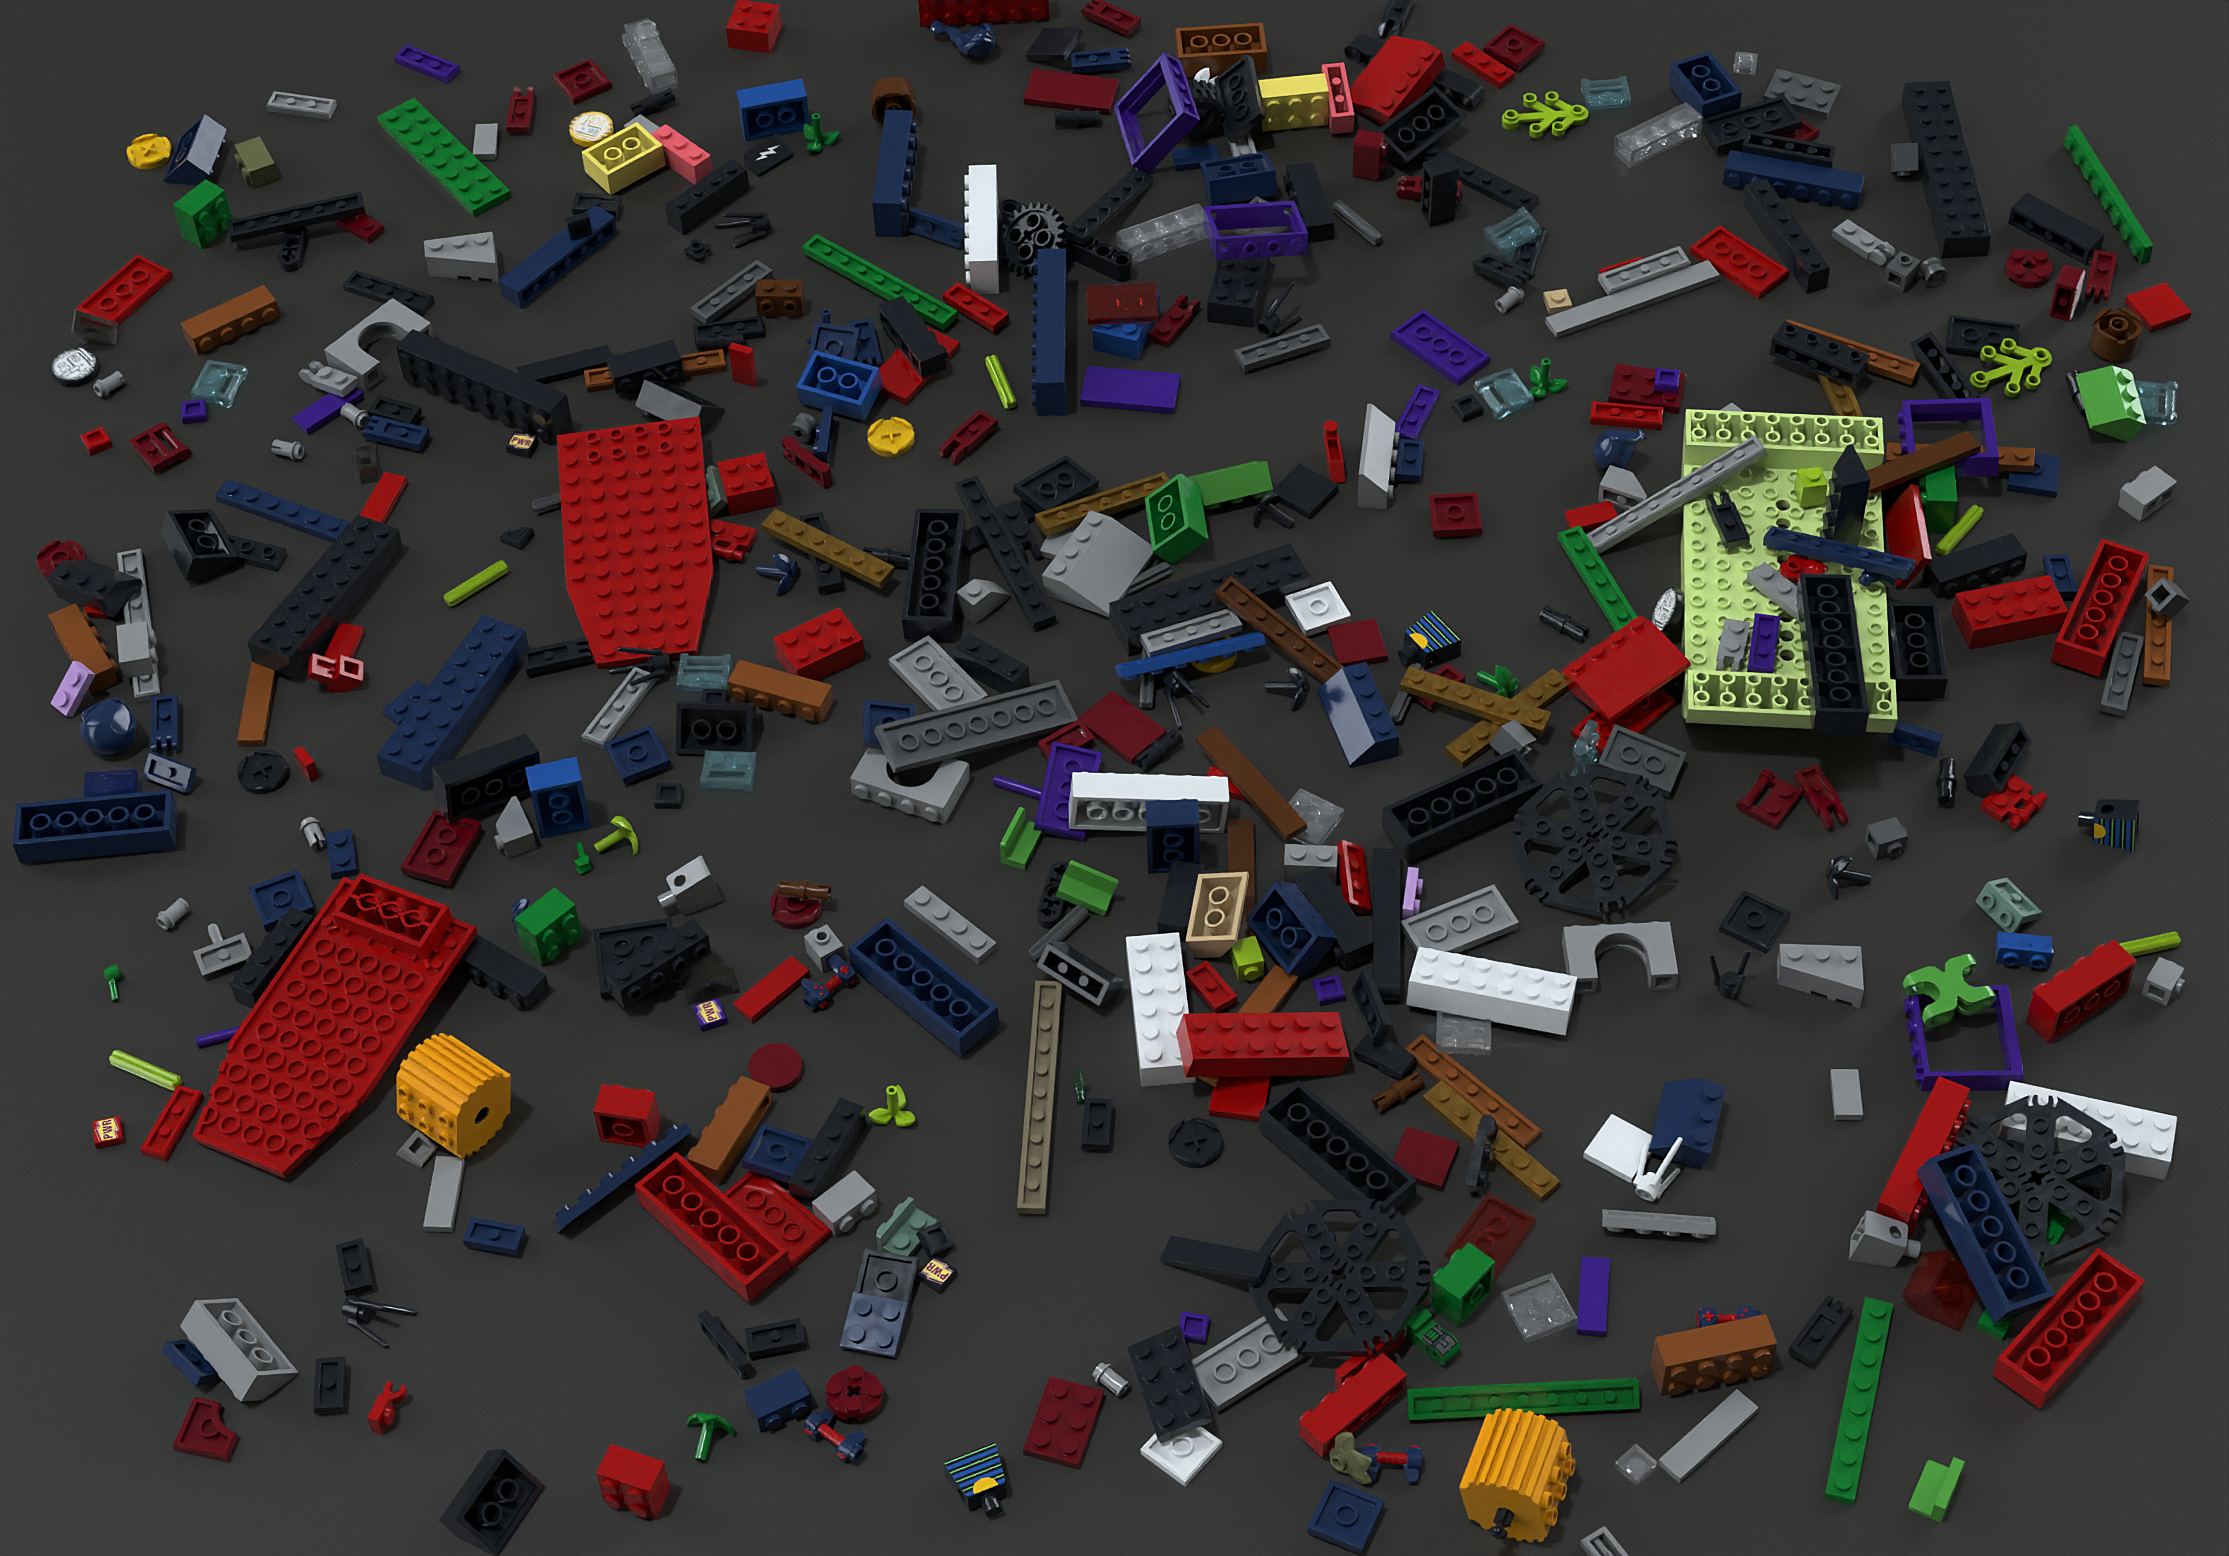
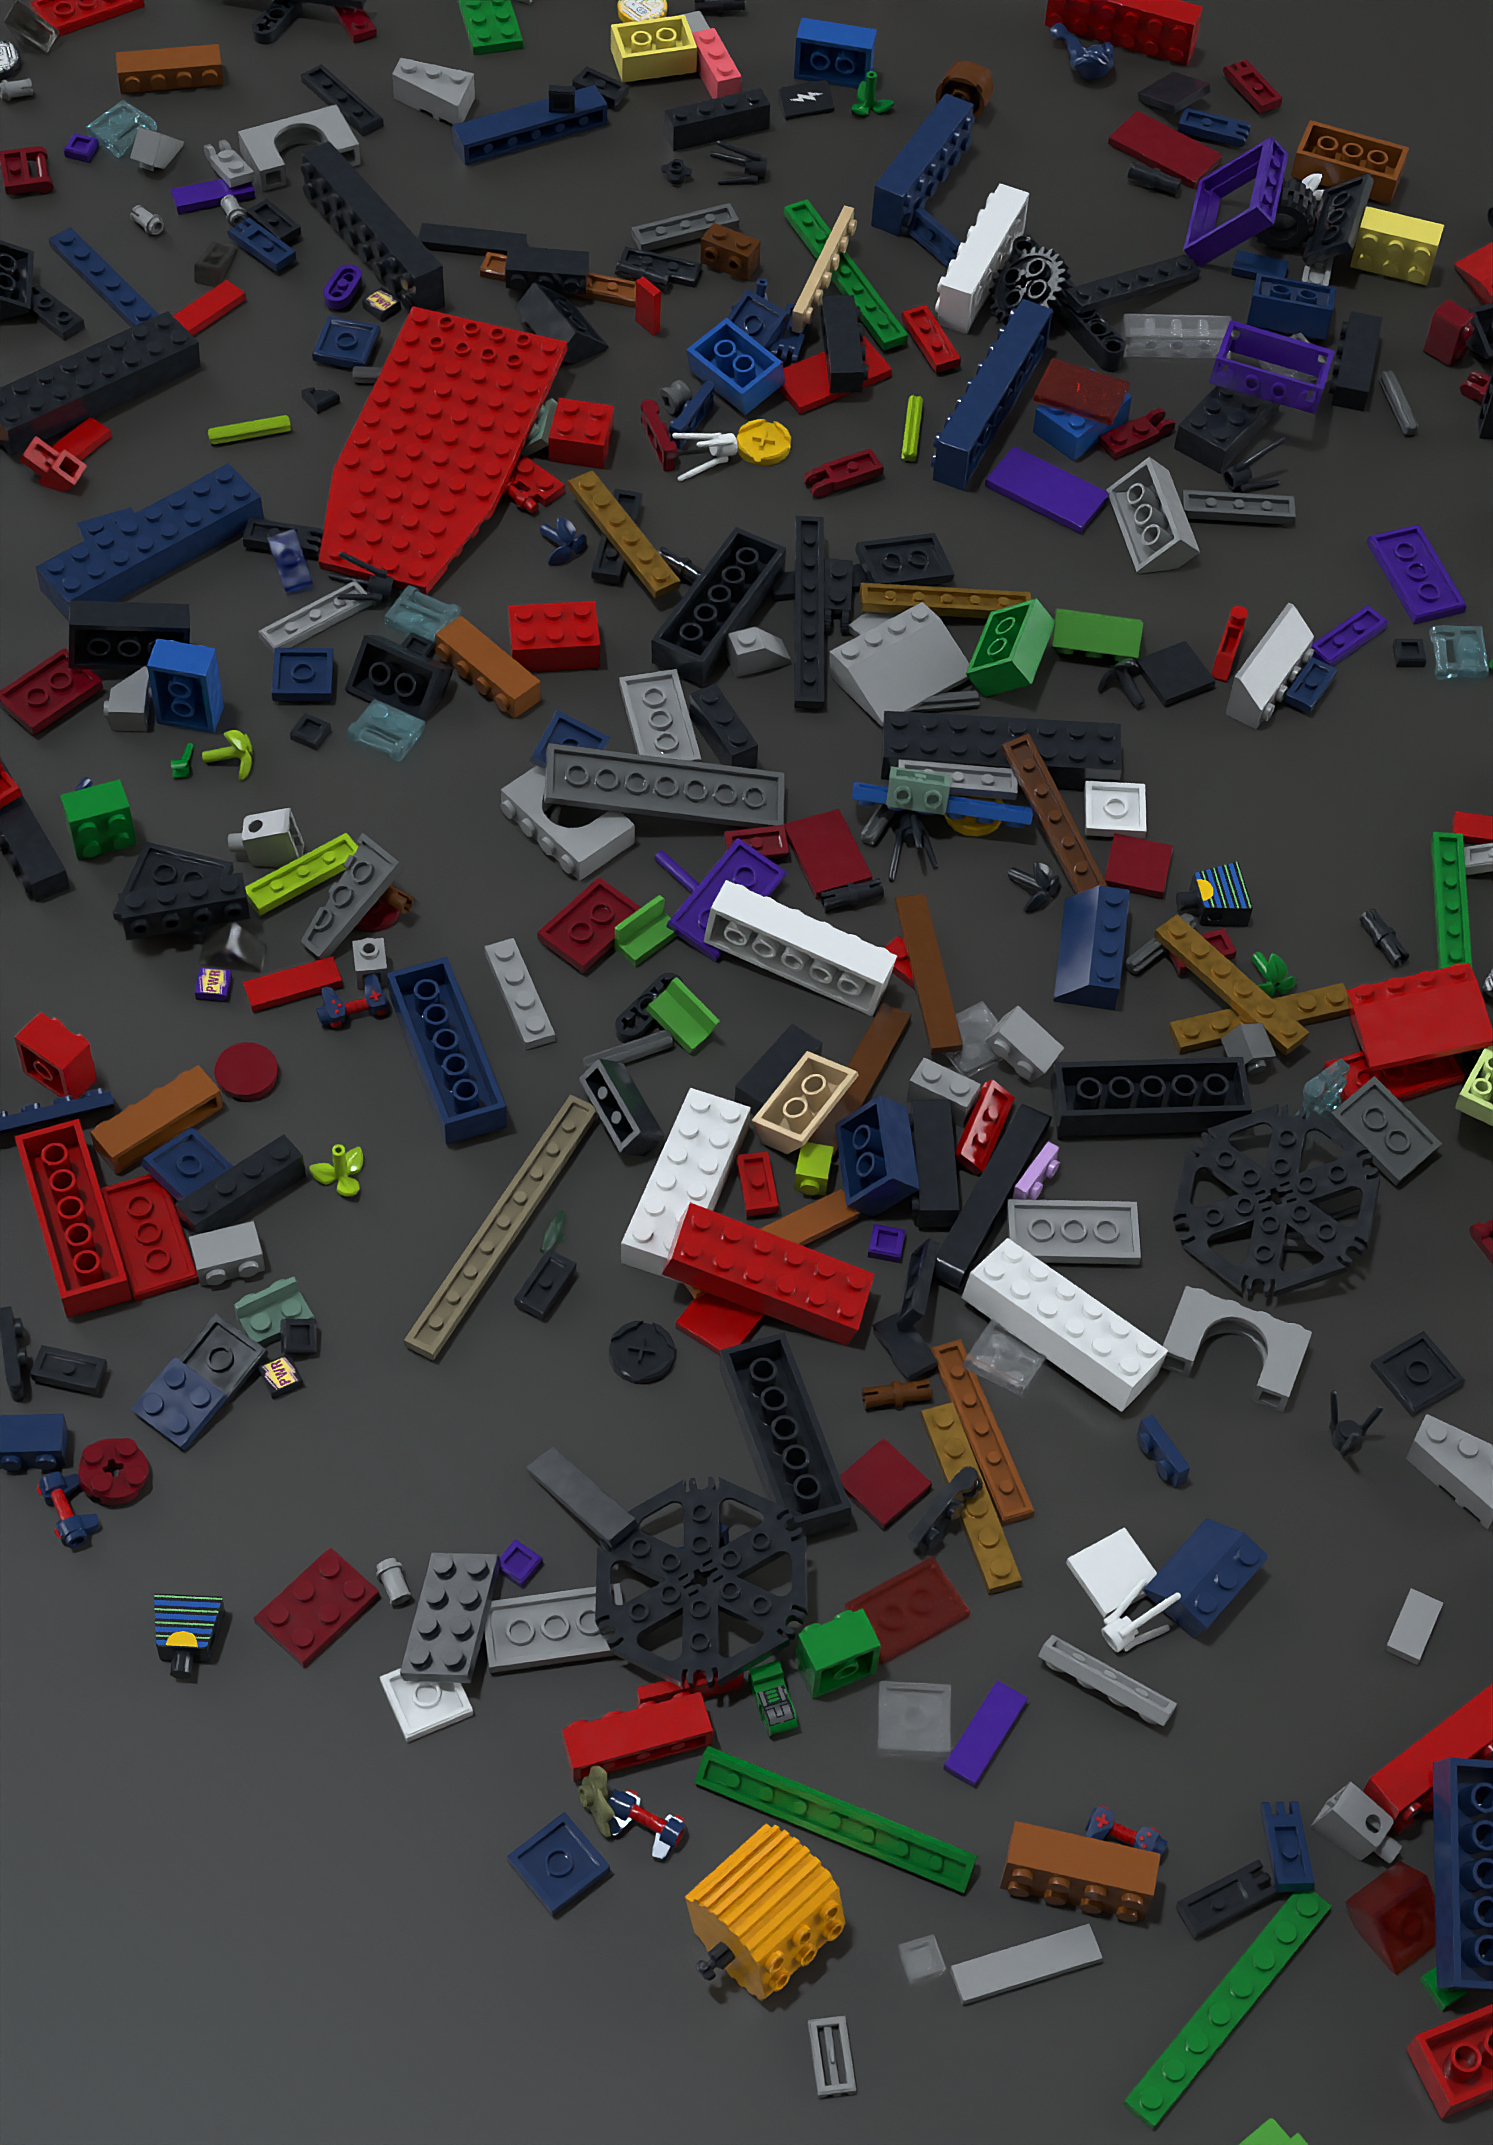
camera: 20 degrees right, 5 degrees up
(260, 390) = (154, 149): none -> light grey slope
(483, 442) = (342, 286): none -> dark purple plate
(513, 485) = (346, 342): none -> dark blue plate
(574, 671) = (290, 560): none -> clear blue plate
(733, 901) = (300, 874): none -> lime plate
(787, 892) = (361, 885): none -> dark grey wing
(861, 452) = (719, 444): none -> white plant
(867, 290) = (821, 273): none -> tan plate
(974, 852) = (587, 924): none -> dark red plate
(1170, 651) = (918, 790): none -> sand green bracket
(1171, 833) = (803, 993): dark blue brick -> none
(1223, 381) = (1152, 519): none -> light grey slope
(1340, 103) = (1448, 258): coral brick -> none
(1350, 805) = (1024, 1044): none -> light grey brick
(1455, 514) = (1327, 765): dark red plate -> none
(1609, 1050) = (1168, 1459): none -> dark blue plate
(1842, 1277) = (1287, 1847): none -> dark blue hinge

